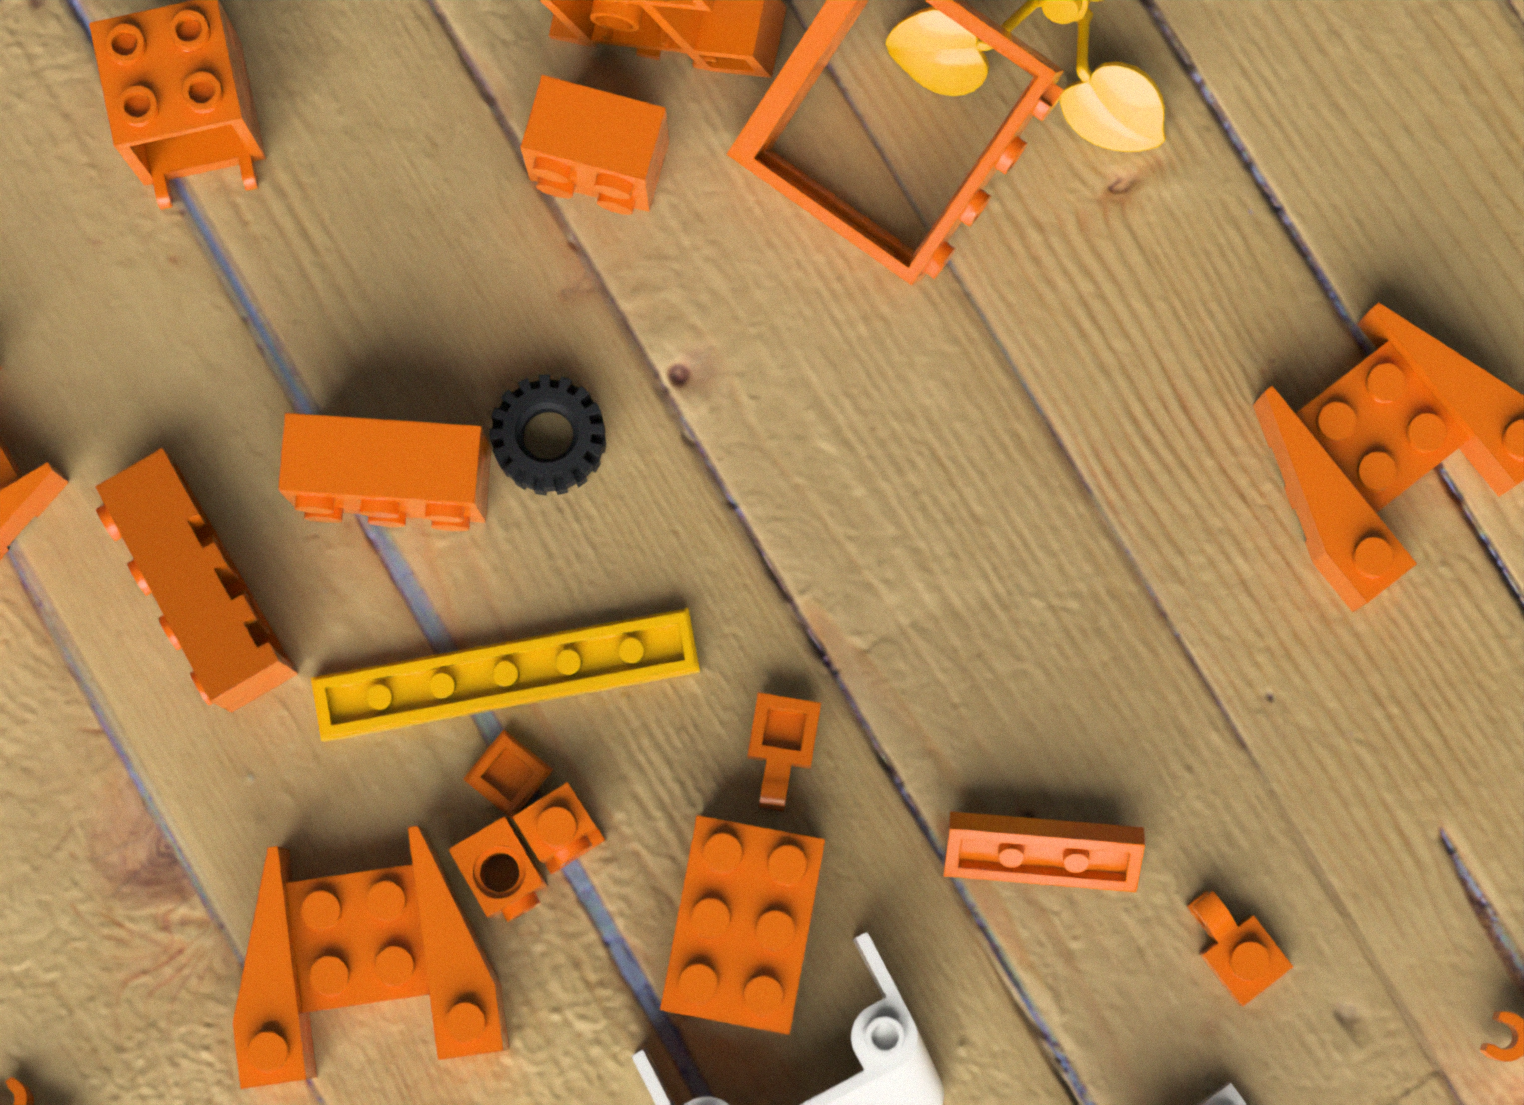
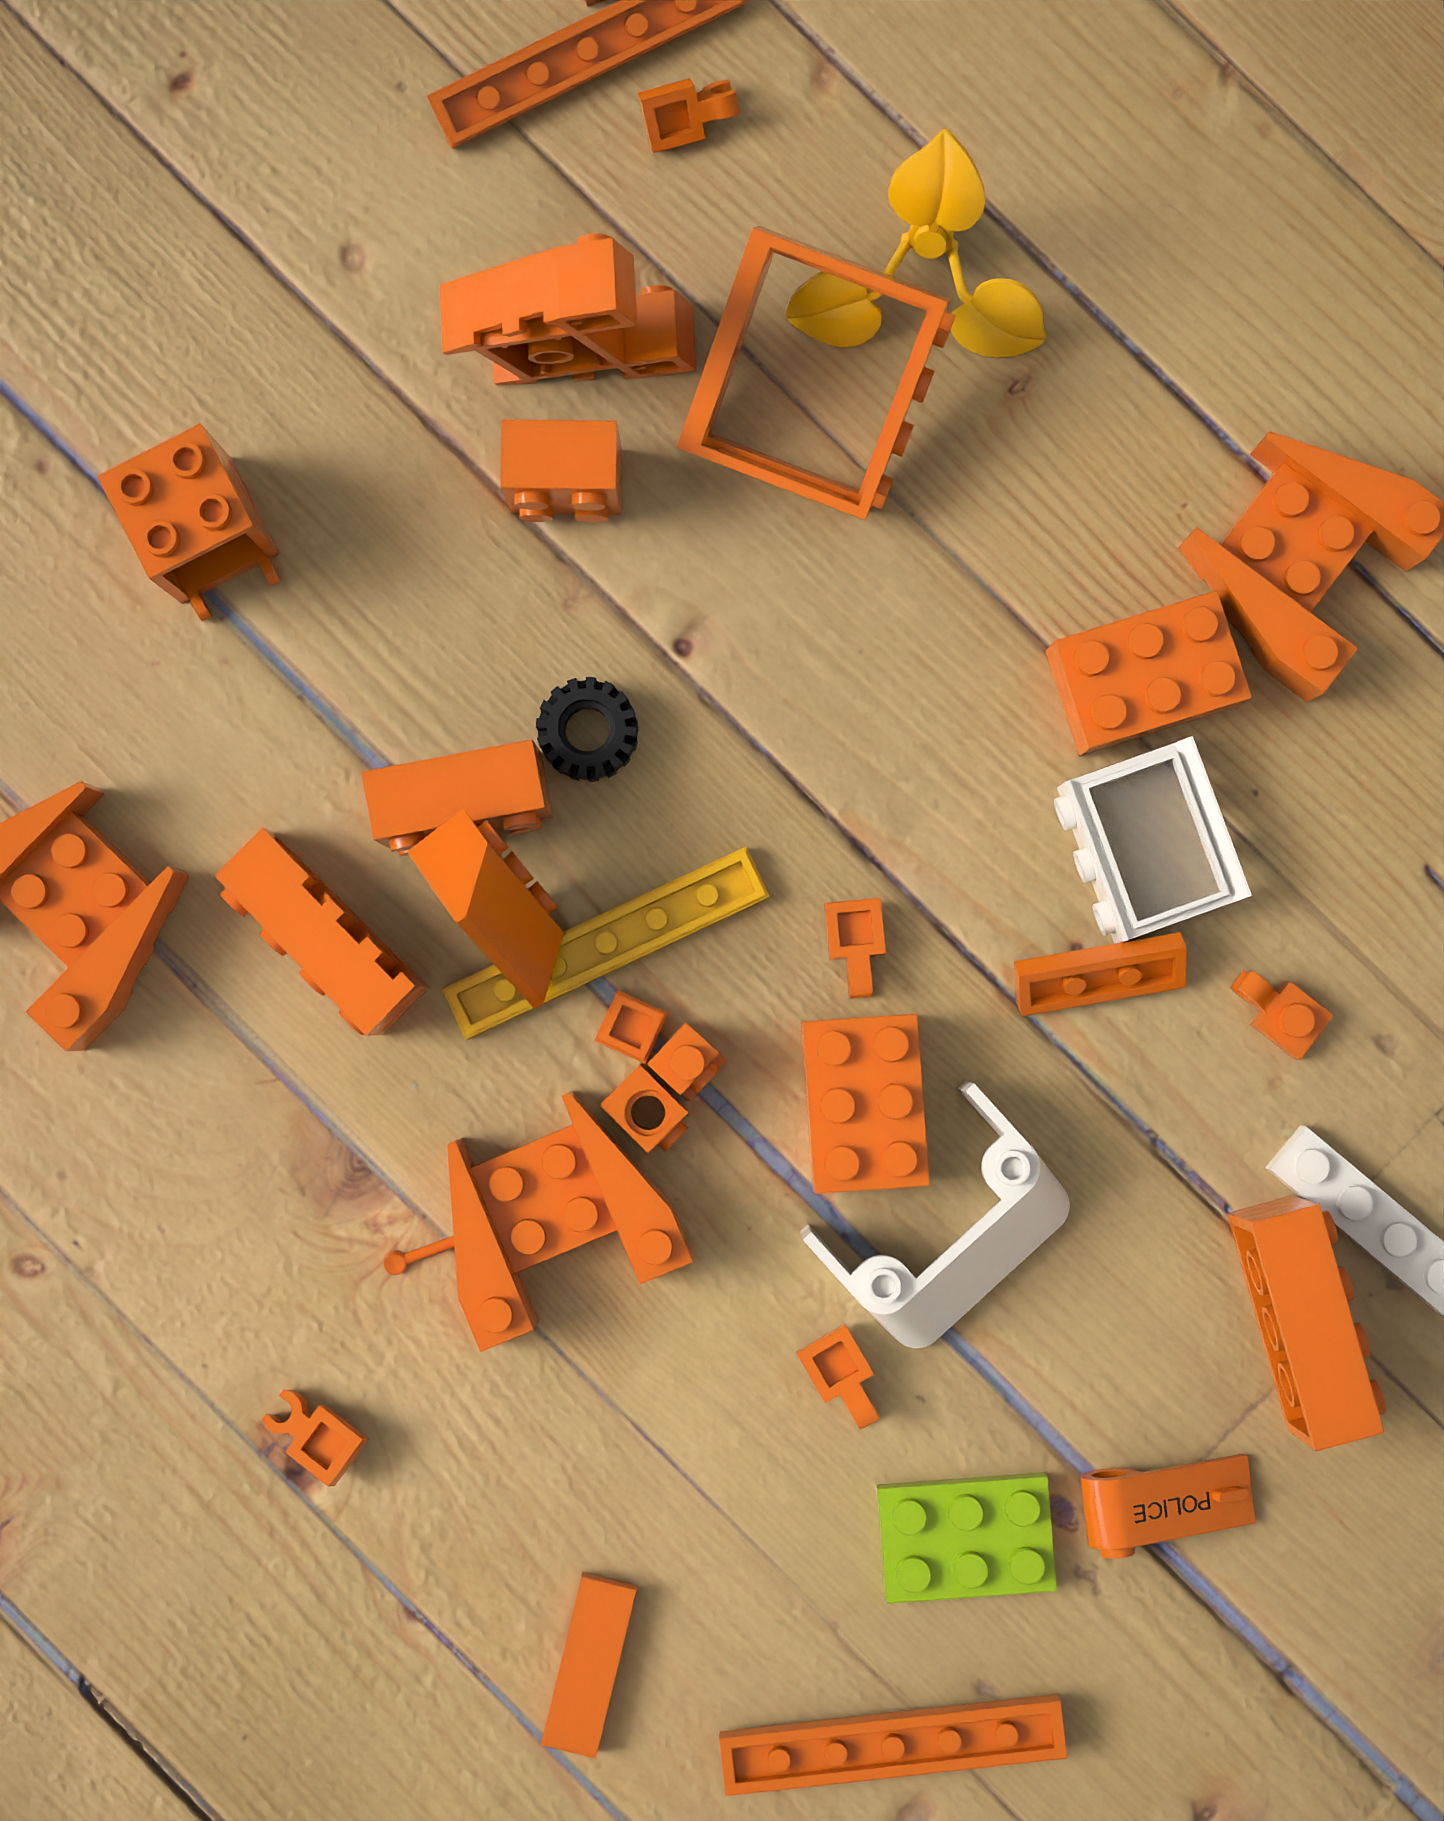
camera: 10 degrees left, 5 degrees up
(177, 967) = (396, 1261): none -> orange hinge
(391, 592) = (493, 901): none -> orange slope
(1137, 719) = (1151, 841): none -> window
(1181, 532) = (1148, 673): none -> orange brick

